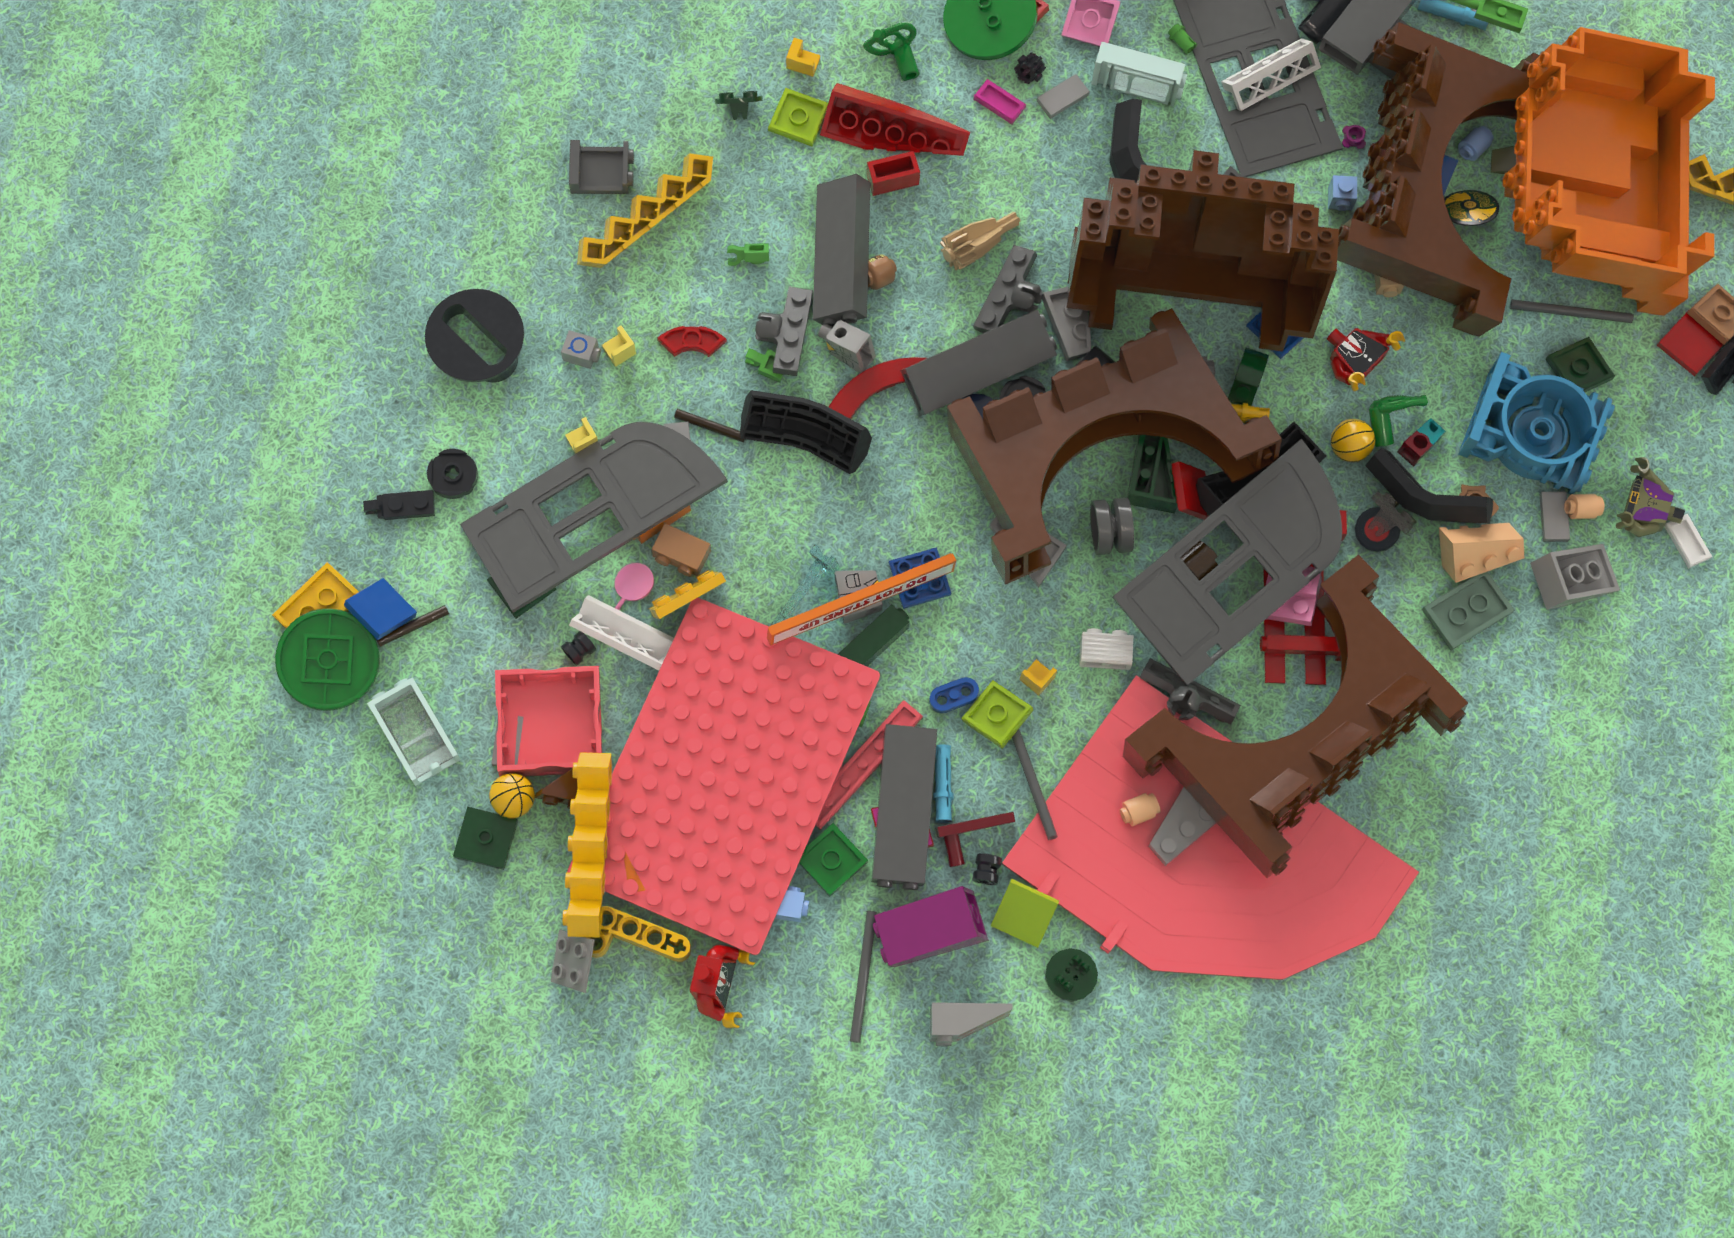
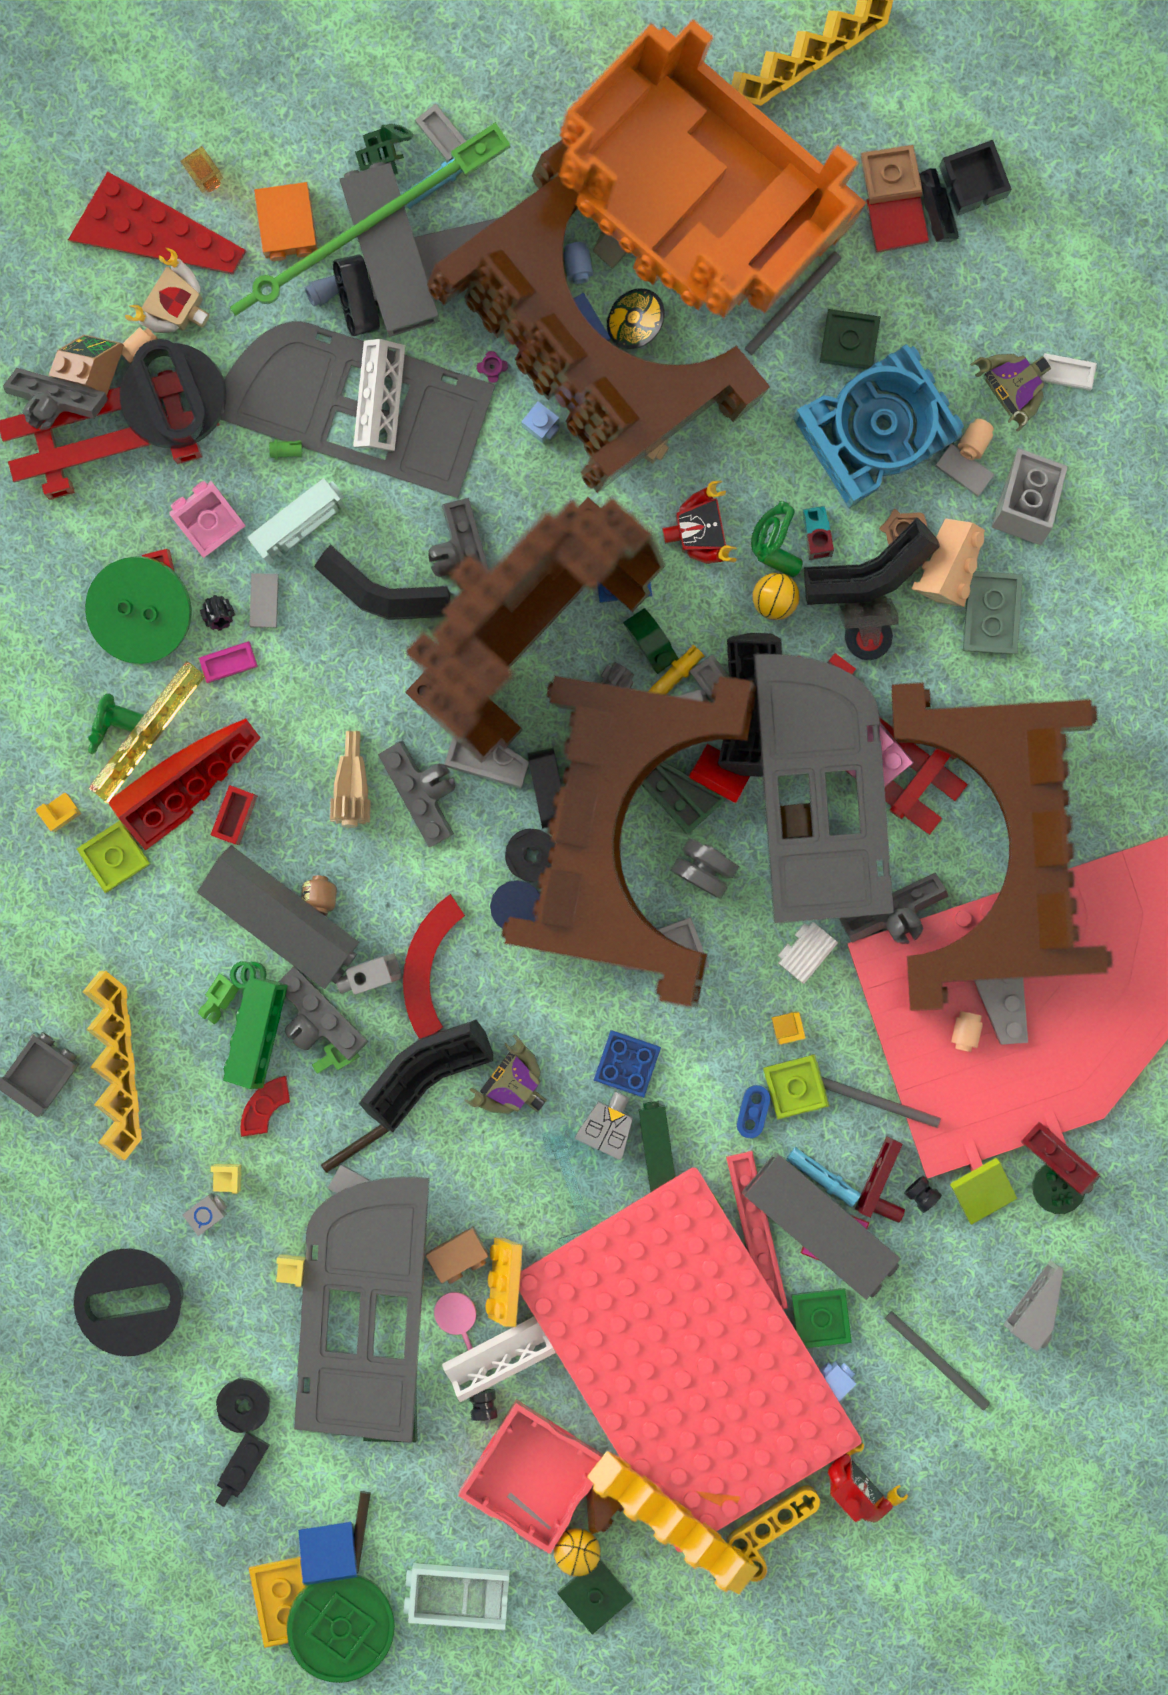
camera: 50 degrees left, 15 degrees up
(572, 961) = (760, 1601): light grey hinge -> none
(740, 103) = (63, 905): dark green plate -> none
(747, 289) = (255, 1026): none -> green hinge
(842, 500) = (511, 1083): none -> torso
(861, 599) = (619, 1137): orange tile -> none
(907, 75) = (146, 732): none -> clear yellow tile
(930, 927) = (940, 1277): magenta slope -> none
(979, 362) = (471, 870): dark grey brick -> none
(1096, 954) = (1061, 1159): none -> dark red piece

